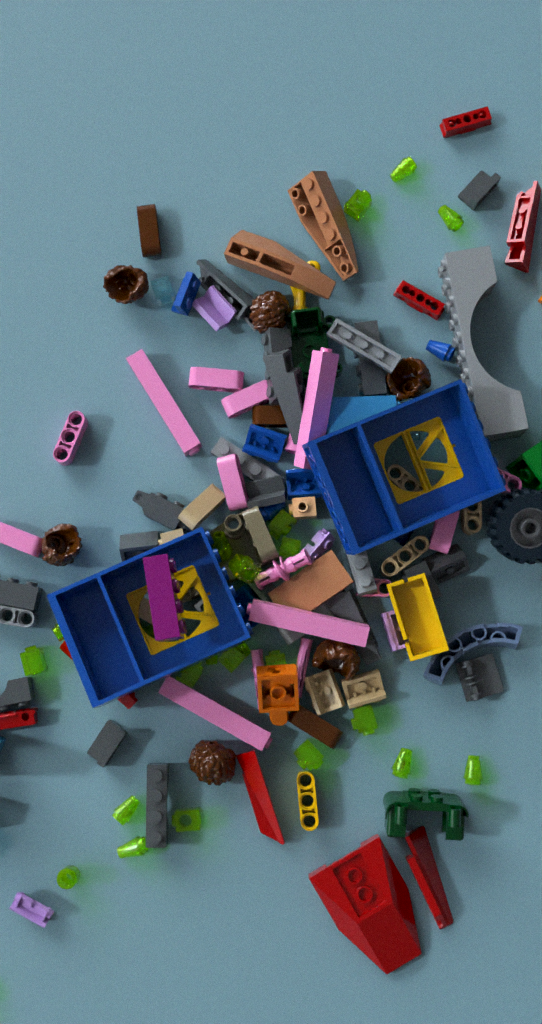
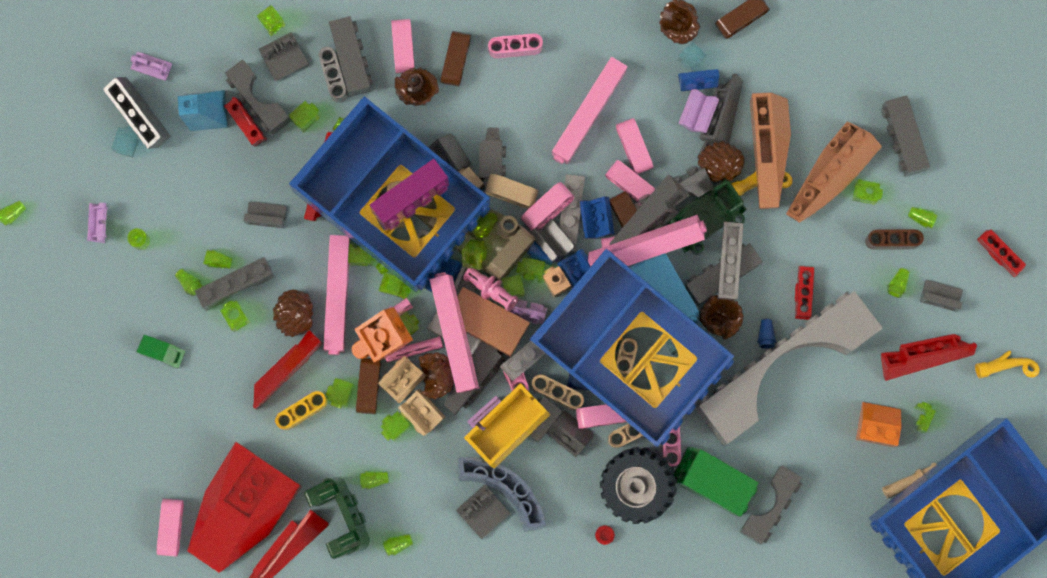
camera: 60 degrees right, 0 degrees up
(53, 497) = (455, 58): none -> reddish brown beam
(185, 907) = (160, 351): none -> green slope
(325, 148) = (905, 135): none -> dark grey brick
(356, 980) = (170, 527): none -> bright pink beam
(412, 194) = (902, 235): none -> reddish brown beam

